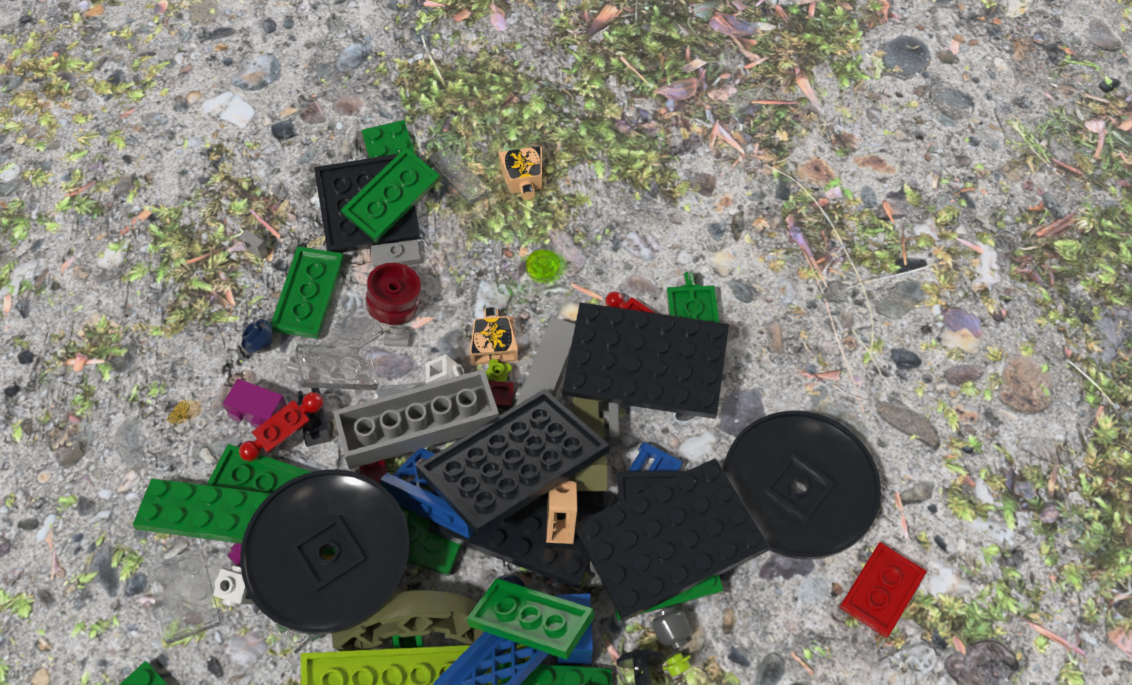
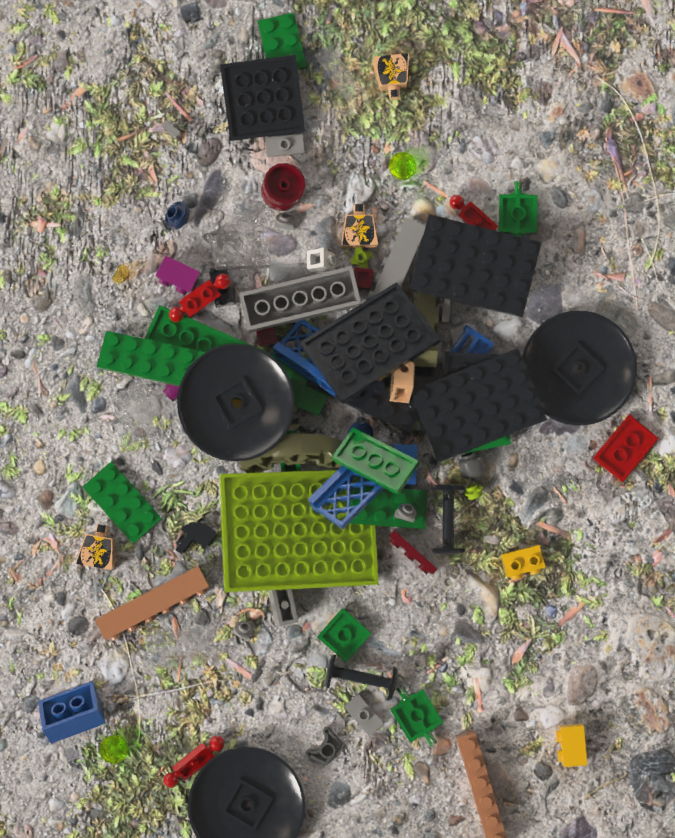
camera: 10 degrees right, 25 degrees up
(231, 587) = (168, 415): white brick -> none
(307, 292) = (215, 177): green plate -> none
(390, 194) = (282, 96): green plate -> none

